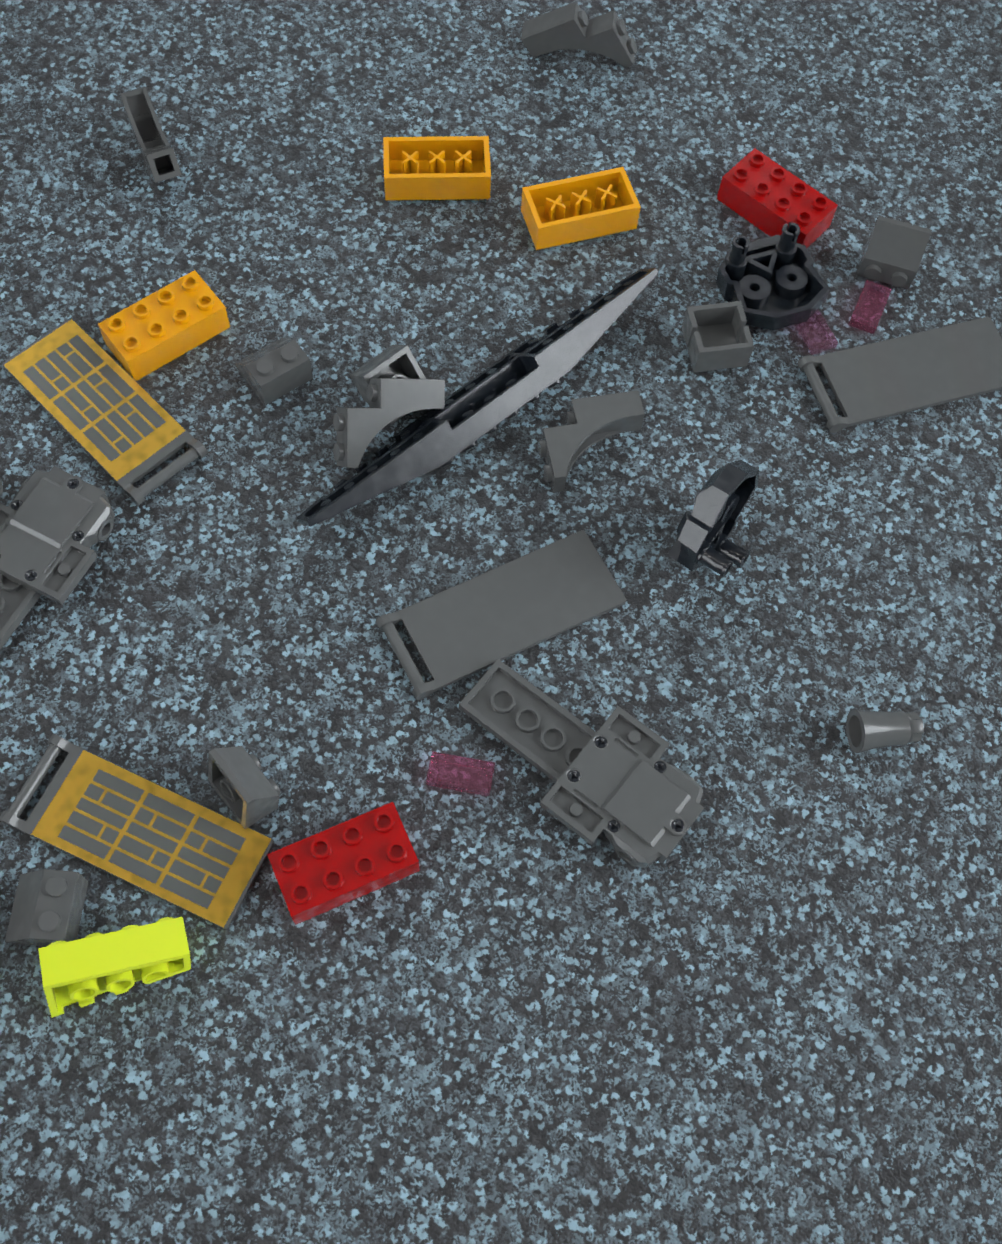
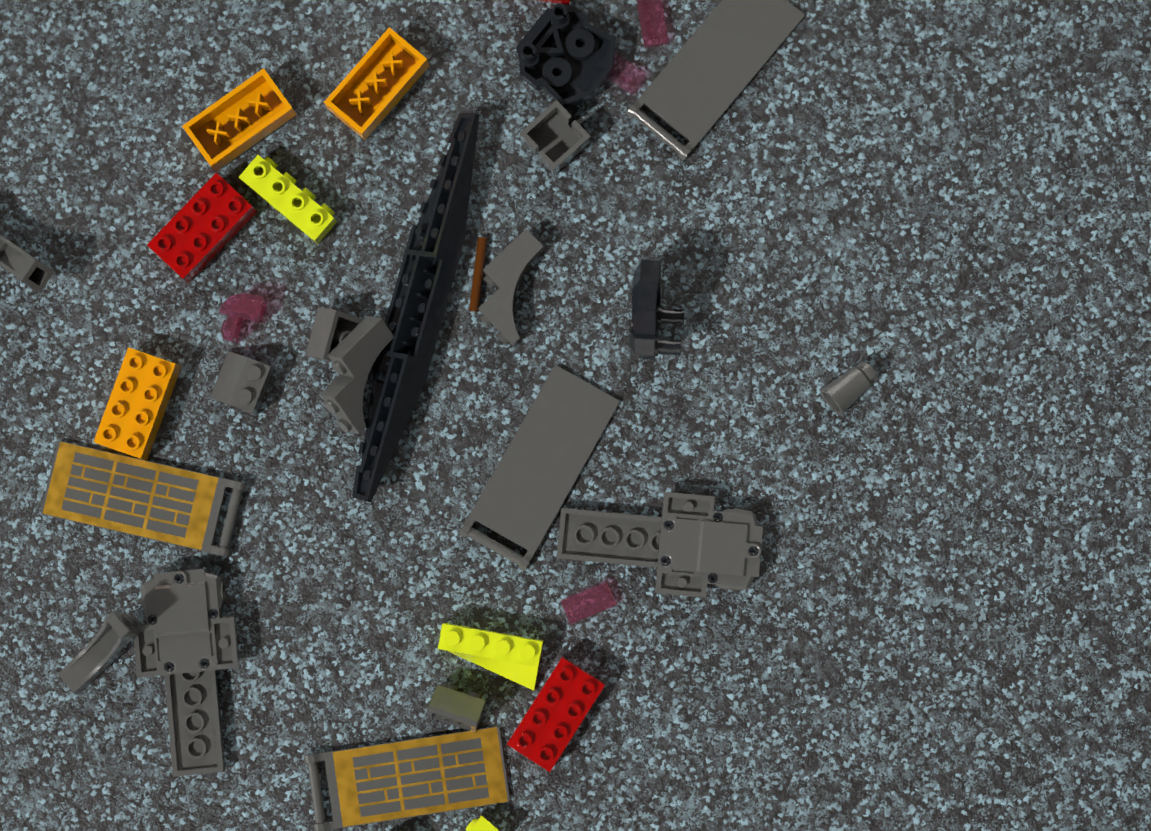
camera: 25 degrees left, 20 degrees up
(318, 307) = (240, 308): none -> clear pink brick
(329, 758) = (501, 653): none -> neon yellow wedge
(338, 228) = (202, 228): none -> red brick
(433, 251) = (288, 199): none -> neon yellow brick
(560, 413) = (478, 274): none -> reddish brown bar

